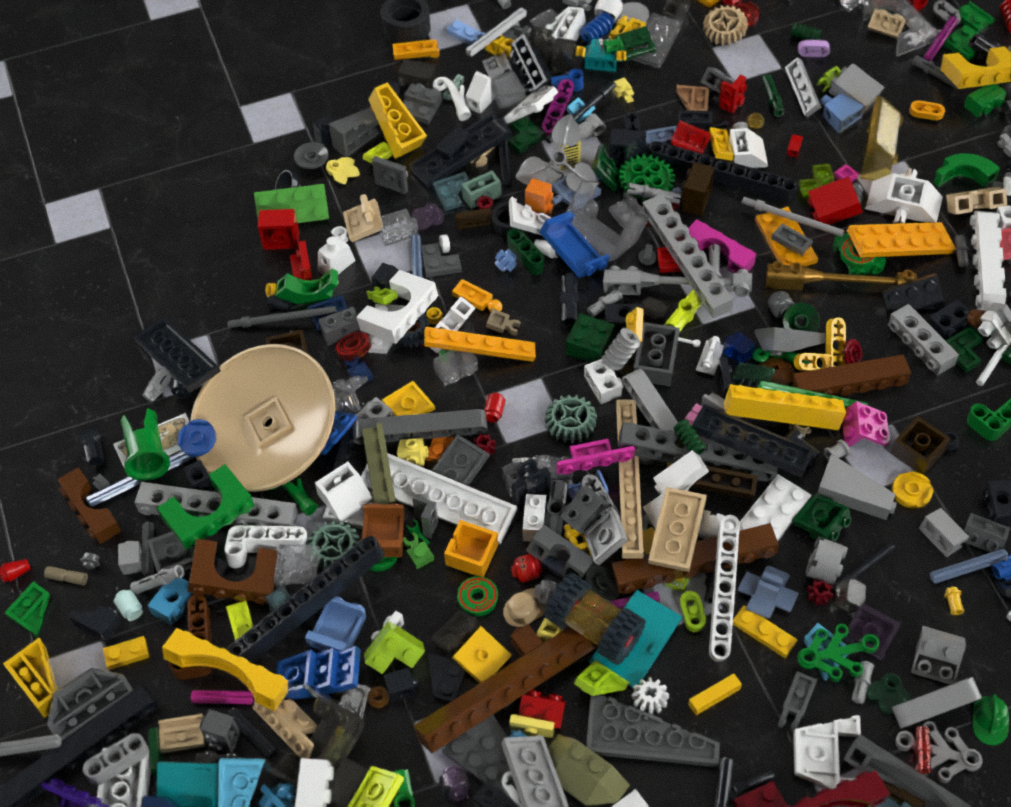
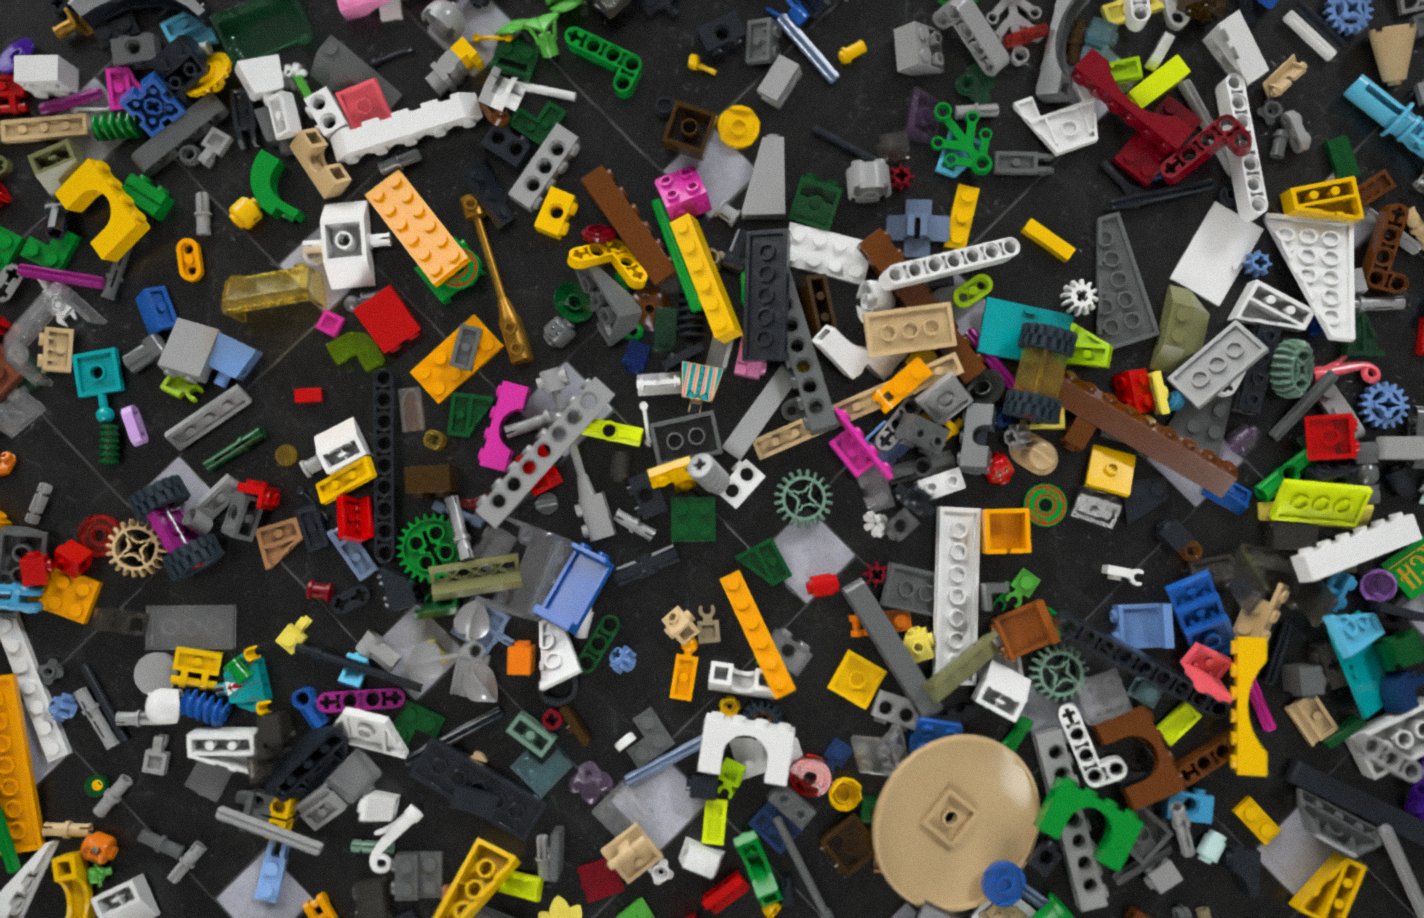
camera: 110 degrees left, 30 degrees up
(269, 649) = (1206, 669): none -> coral bracket
(329, 361) = (845, 794): none -> yellow hair
(351, 198) = (599, 880): none -> dark red piece
(355, 277) = (714, 822): none -> neon yellow plate
(390, 644) = (1146, 557): lime brick -> none
(410, 755) = (1235, 499): none -> blue slope
(512, 301) = (677, 622): none -> tan brick
(532, 377) = (766, 562): none -> dark green wing
(608, 191) = (476, 580): none -> olive fence
(632, 505) = (902, 384): none -> light orange plate
(637, 38) = (209, 651): dark green plate -> none
(647, 109) = (320, 591): none -> dark red bush
(689, 437) = (800, 355): dark green piece -> none
(697, 380) = (699, 384): none -> torso
(728, 201) = (441, 442): none -> clear yellow bush
(729, 42) = (161, 506): none -> black plate
(733, 64) = (201, 515): none -> light grey plate
(740, 229) = (467, 413): none -> dark green wing
(761, 206) = (425, 401): light grey bar -> none
(768, 199) = (411, 409): none -> clear tile
(851, 38) = (110, 381): none -> teal plate
(863, 62) = (148, 352): none -> dark grey piece
(881, 334) = (556, 200): none -> yellow brick
(896, 84) = (156, 309): none -> blue panel
(951, 146) = (245, 212): none -> yellow head
(960, 127) = (202, 214): none -> light grey axle
(982, 476) = (694, 64): none -> yellow hand

